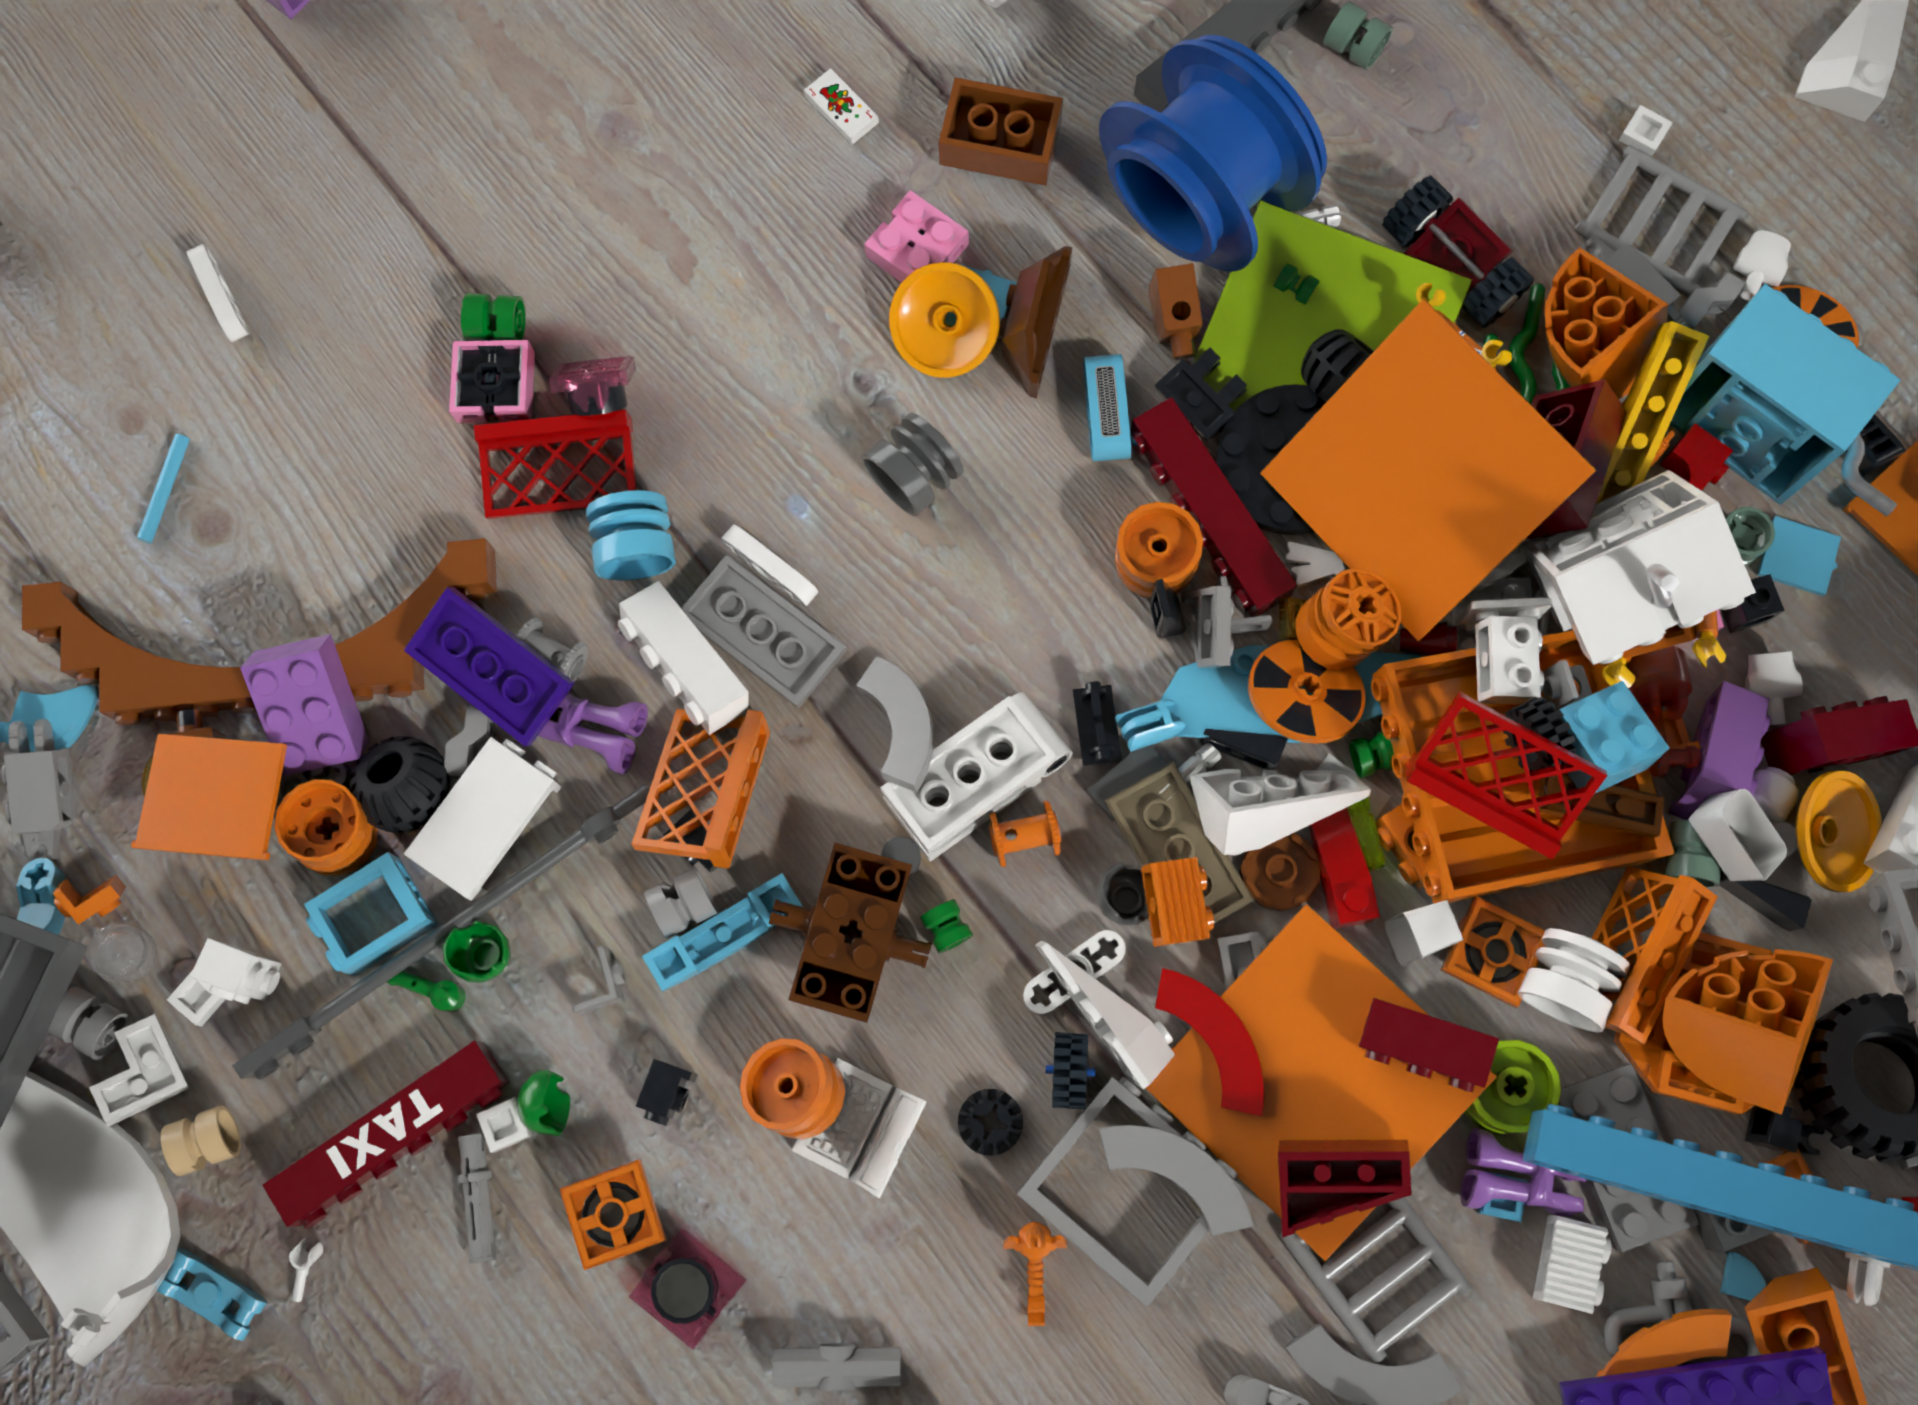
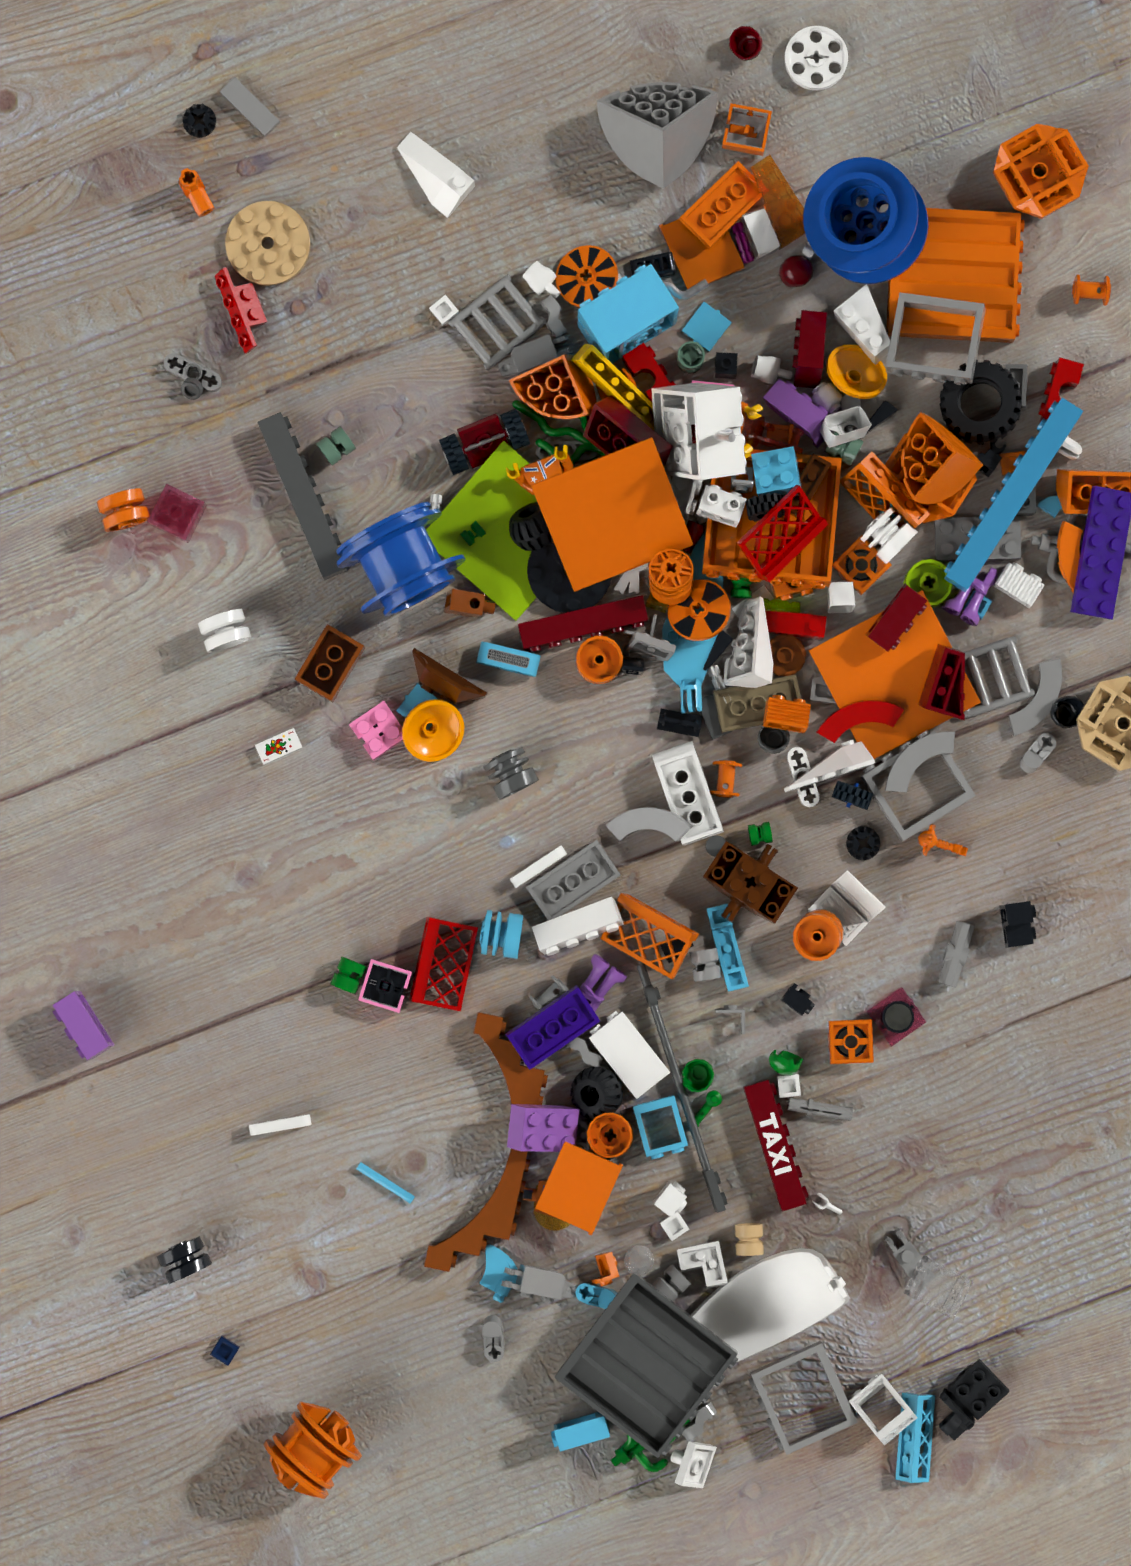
camera: 80 degrees left, 10 degrees up
(212, 1294) = (828, 1250): medium azure plate -> none
(594, 384) = (408, 929): clear pink piece -> none
(1196, 399) = (520, 610): black plate -> none

